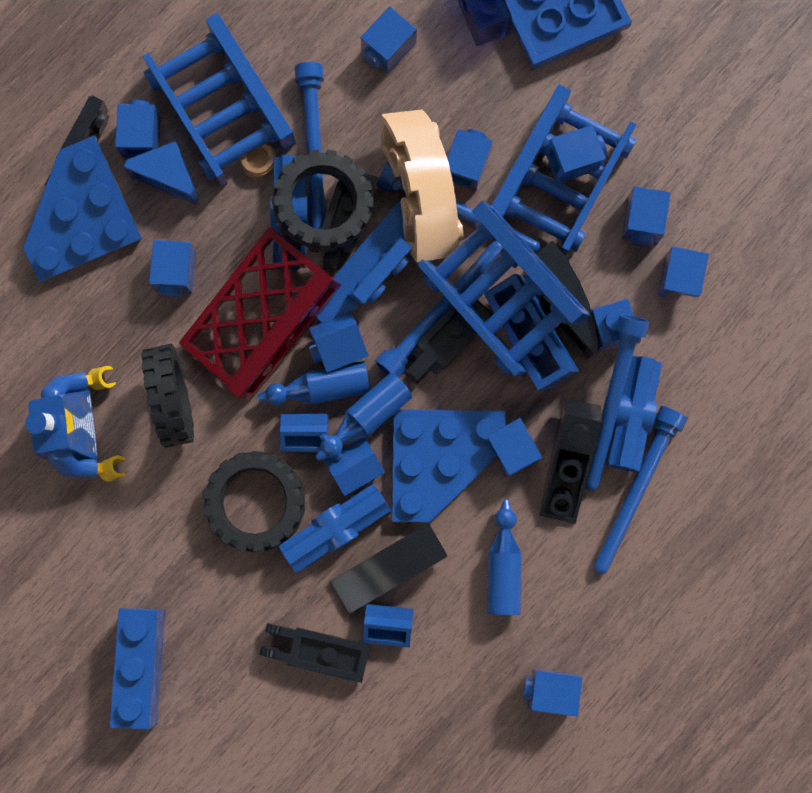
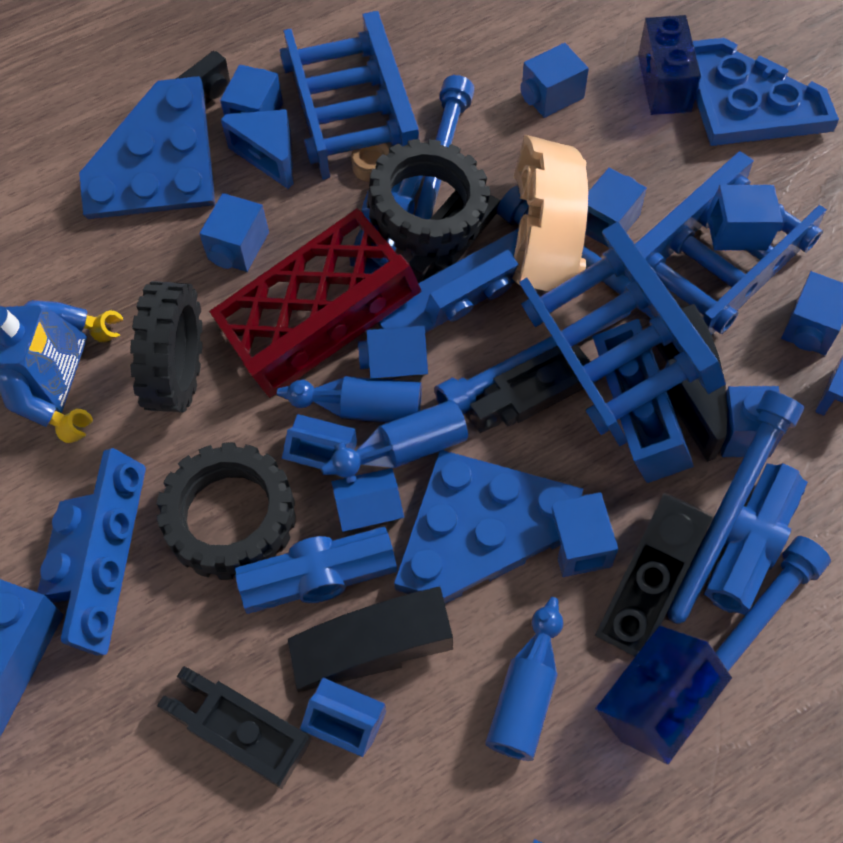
camera: 20 degrees right, 20 degrees down
(167, 560) = (91, 552): none -> blue bracket
(595, 548) = (664, 693): none -> clear blue brick

